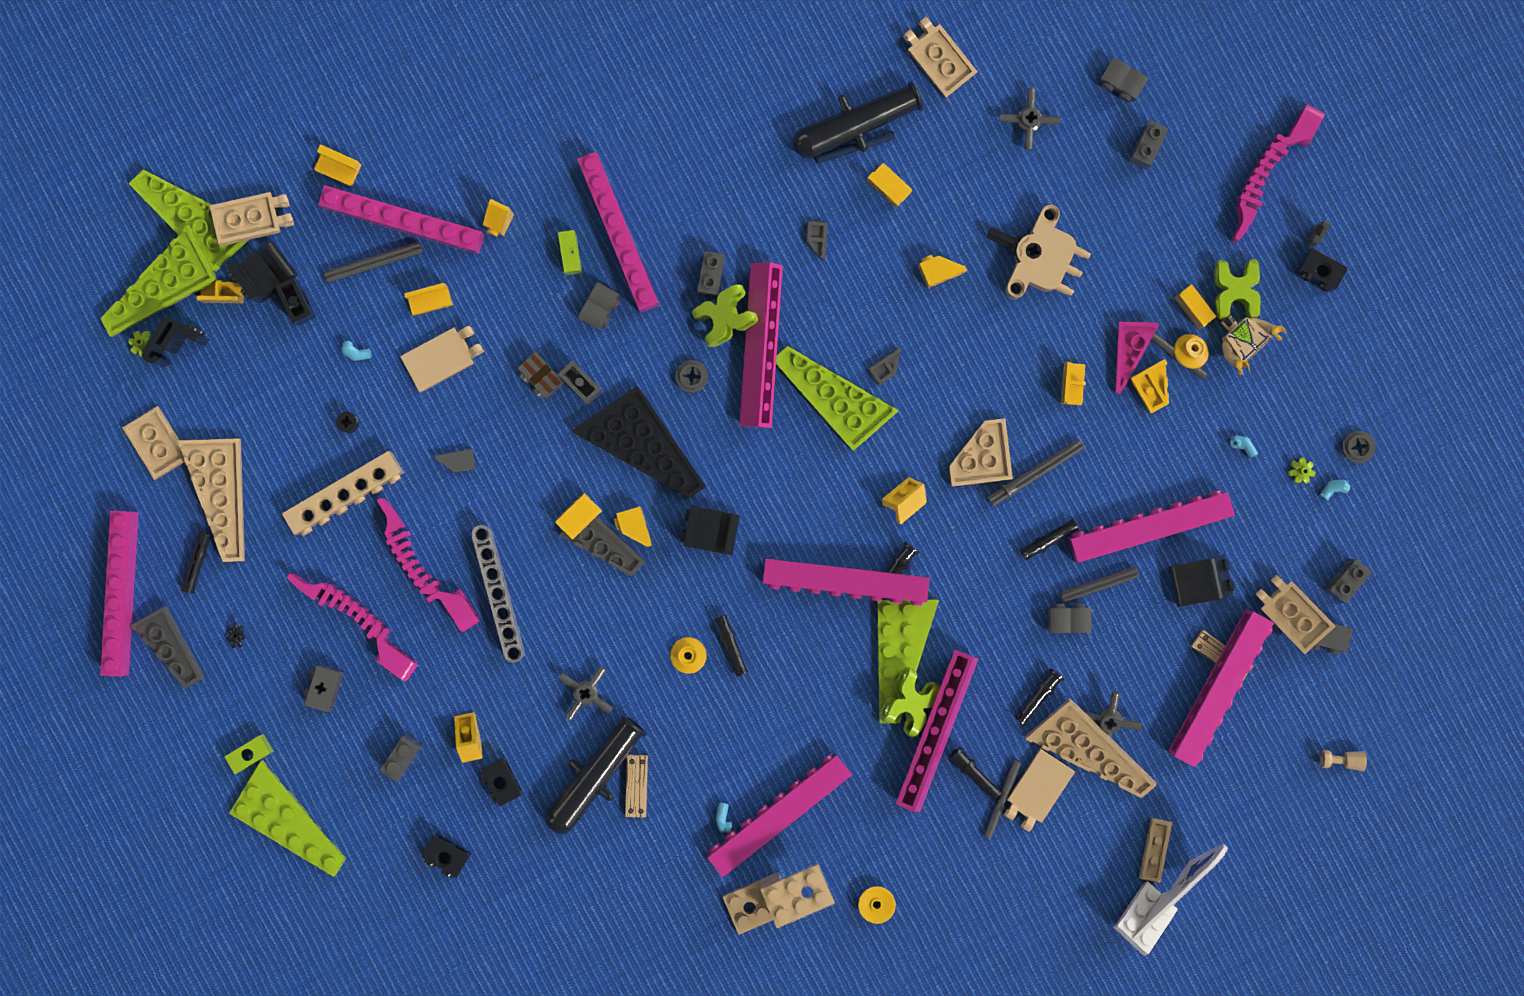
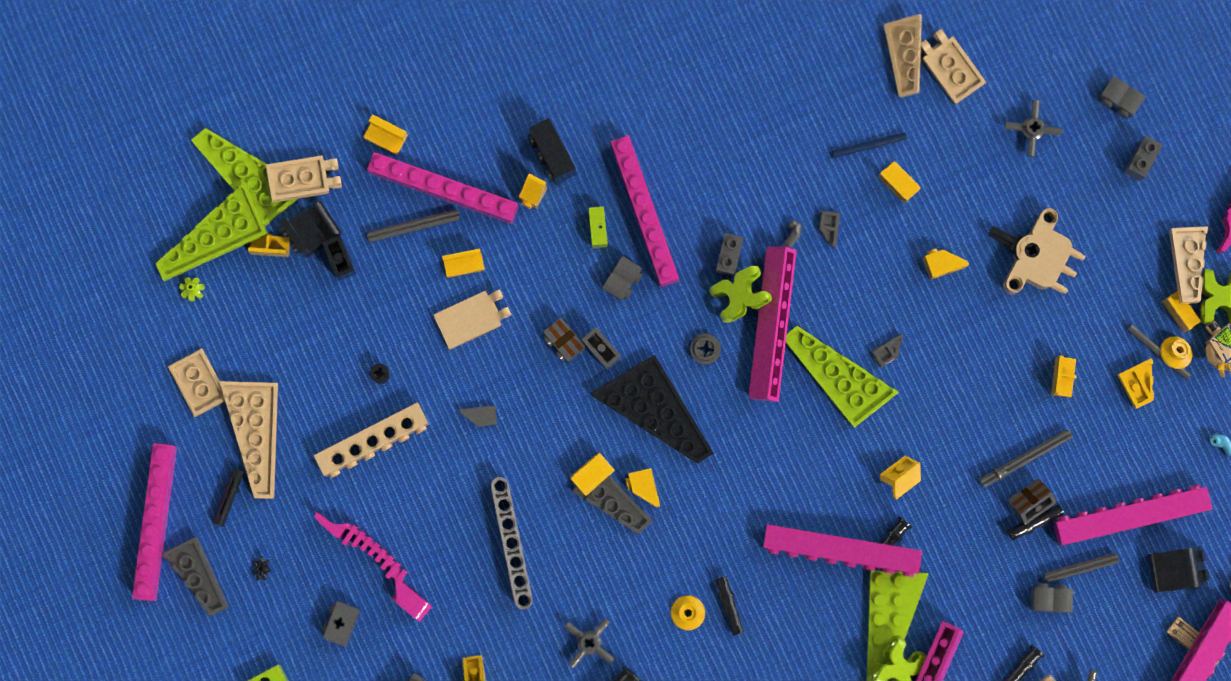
camera: 10 degrees right, 5 degrees down
(170, 337) = (220, 284): black piece -> none
(351, 352) = (386, 307): medium azure arm -> none
(455, 602) = (470, 549): dark pink piece -> none
(514, 174) = (551, 152): none -> black brick
(710, 530) = (716, 494): black piece -> none
(780, 248) = (795, 234): none -> dark grey arm
(856, 121) = (871, 121): black piece -> none
(888, 41) = (905, 50): none -> tan wing
(983, 457) = (977, 440): tan plate -> none
(1044, 518) = (1031, 501): none -> dark grey brick
(1132, 342) = (1120, 342): dark pink wing -> none
(1201, 253) = (1188, 256): none -> tan wing

